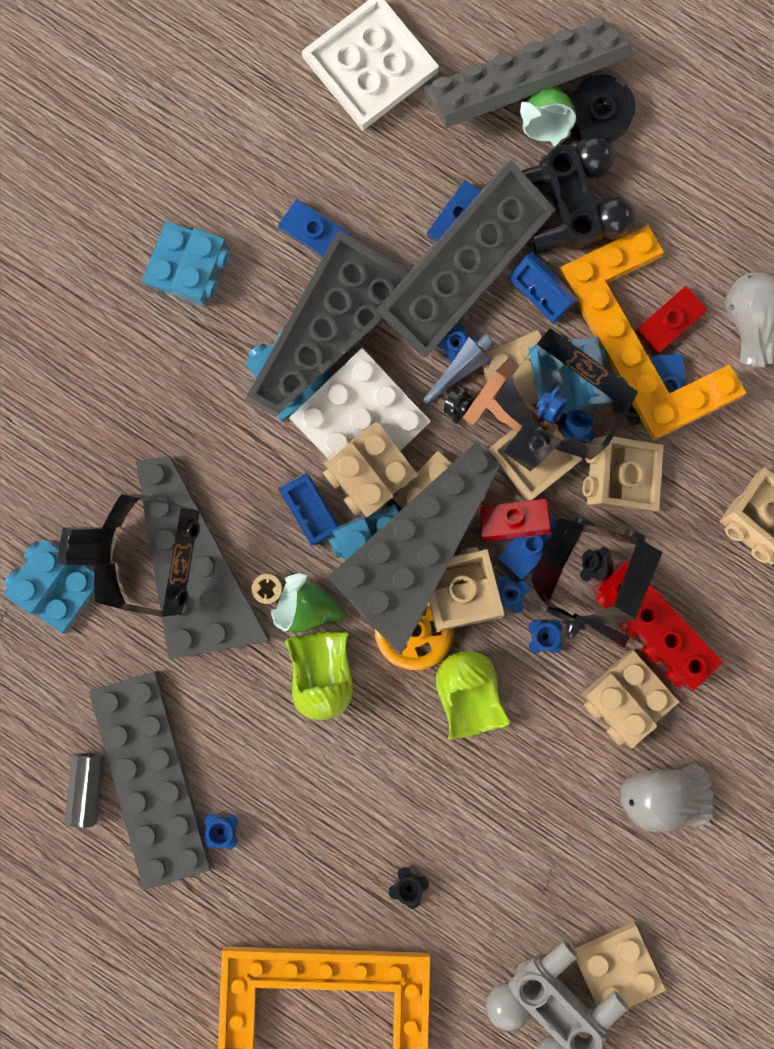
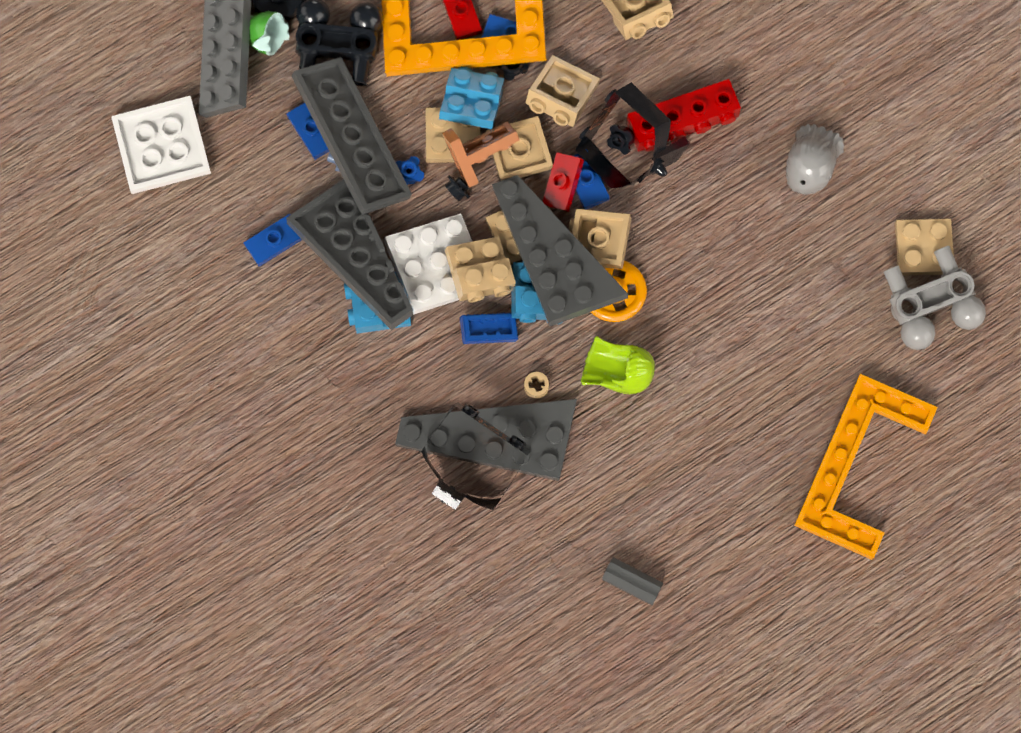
camera: 70 degrees left, 10 degrees down
(50, 588) = (464, 545): dark azure plate -> none
(150, 780) = (645, 531): dark grey plate -> none
(186, 263) = (256, 345): dark azure plate -> none
(217, 840) = (708, 500): blue plate -> none
(304, 606) = (561, 361): bright green hat -> none
(412, 897) = (812, 371): black plate -> none
(468, 359) = (426, 164): sand blue piece -> none
(470, 695) = (678, 266): lime piece -> none
(519, 590) = (616, 202): blue plate -> none
(534, 443) = (511, 138): black piece -> none
(542, 288) = (396, 91): blue plate -> none
(551, 406) = (495, 113): blue plate -> none
(552, 629) = (658, 190): blue plate -> none
(577, 426) = (511, 109): blue plate -> none
(629, 700) = (730, 158): tan plate -> none

